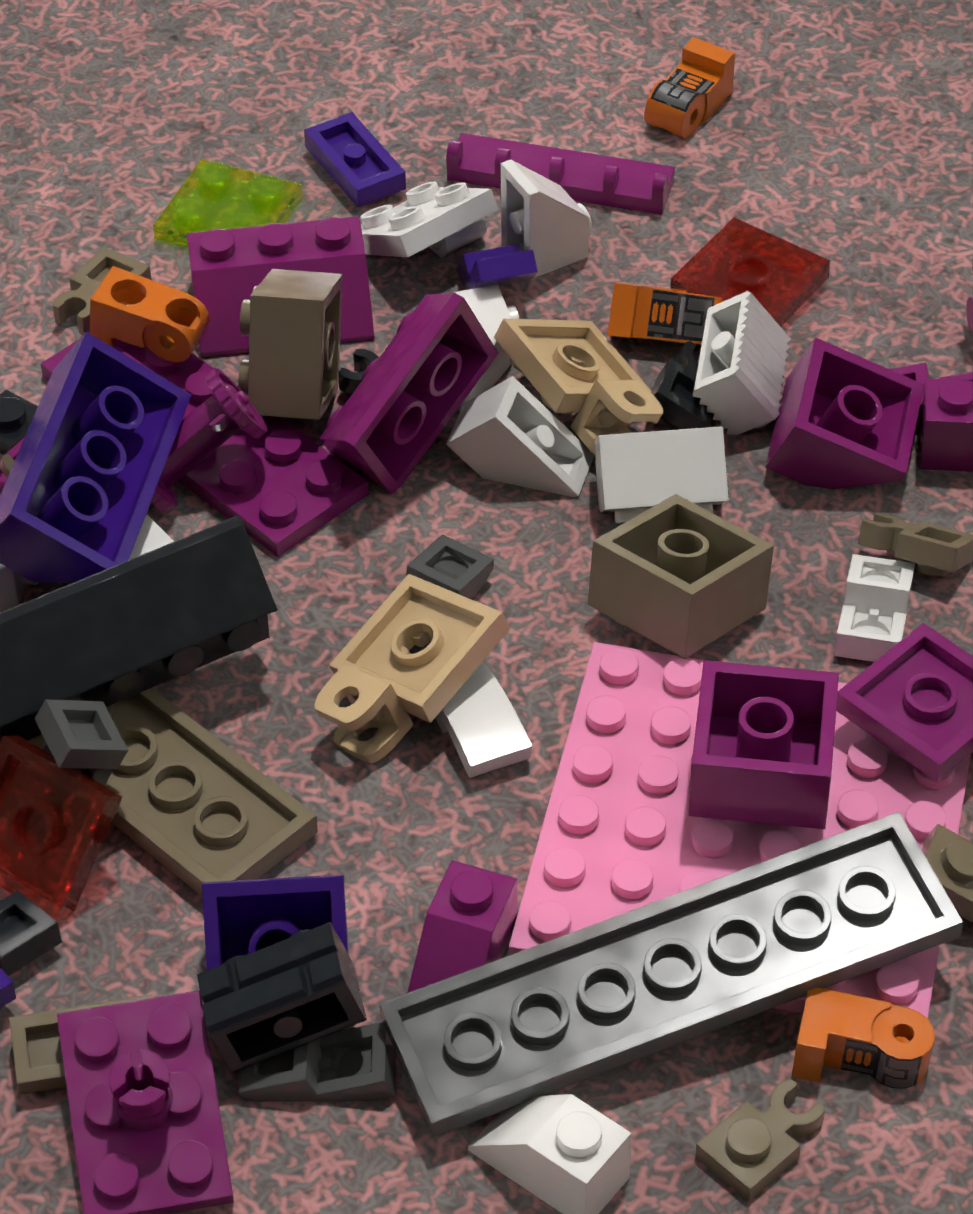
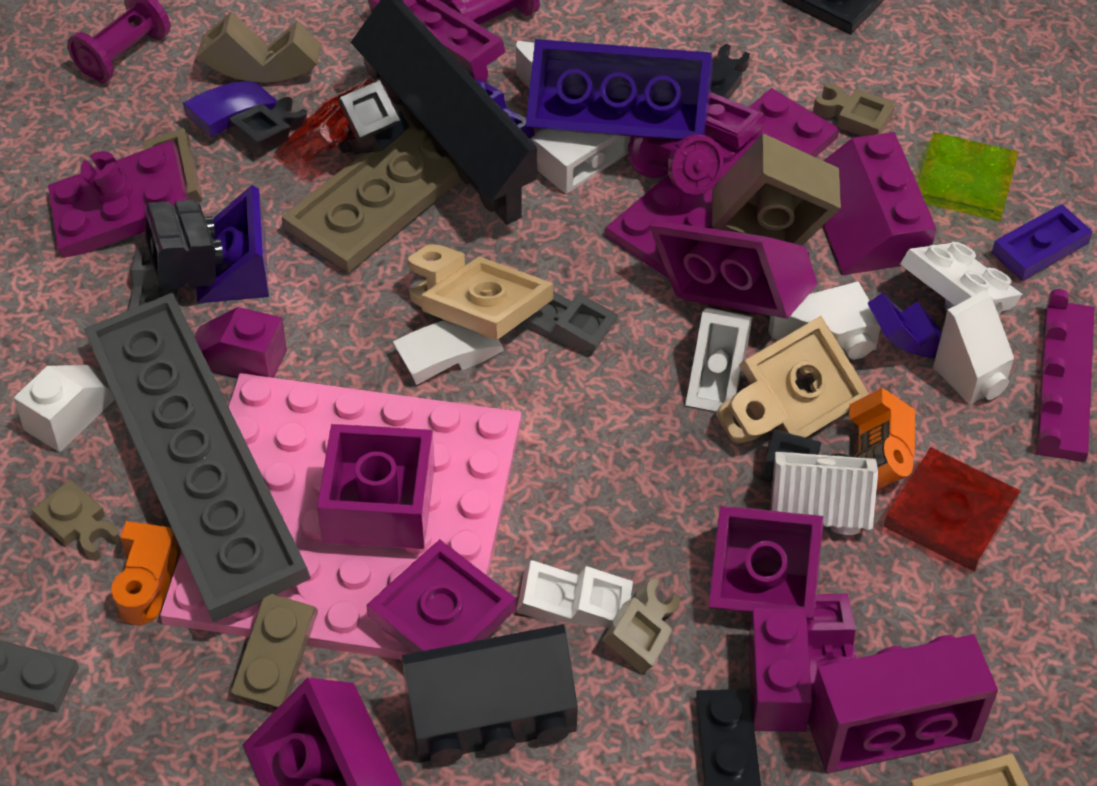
camera: 85 degrees right, 5 degrees up
(147, 315) = (802, 120): orange leg -> none
(651, 466) = (691, 439): white brick -> none
(680, 575) = (571, 449): dark tan brick -> none

